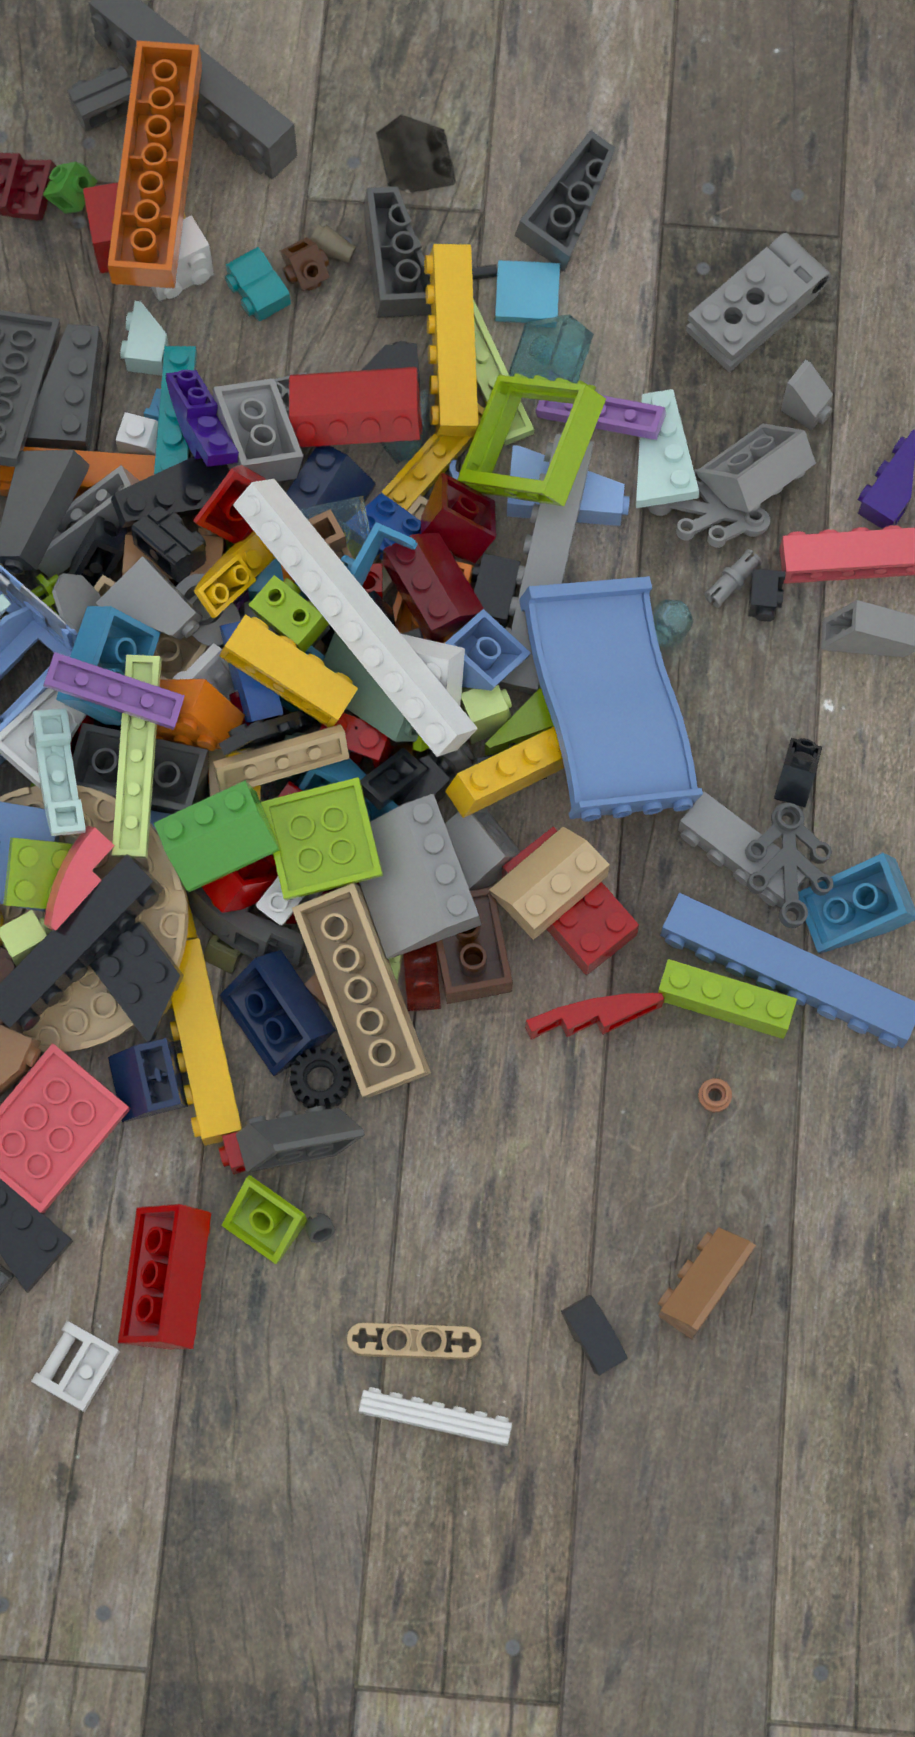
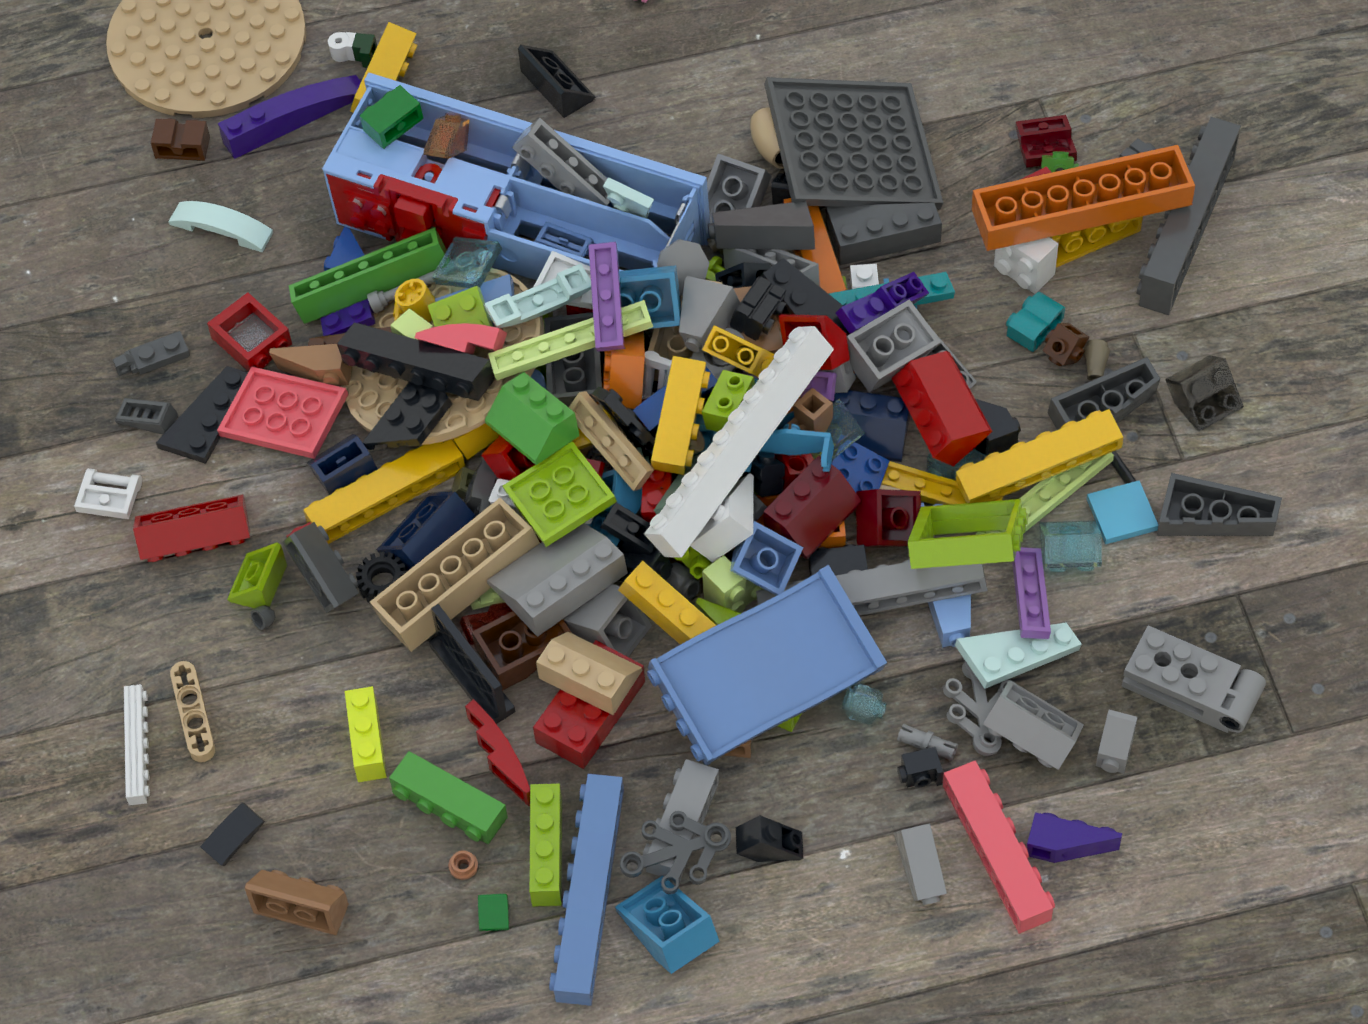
camera: 75 degrees right, 15 degrees down
(145, 342) = (952, 259): light aqua slope -> none
(481, 1015) = (468, 667): none -> black fence
(520, 1152) = (365, 734): none -> neon yellow brick
(630, 1086) = (448, 798): none -> bright green brick
(783, 1080) = (493, 912): none -> green slope

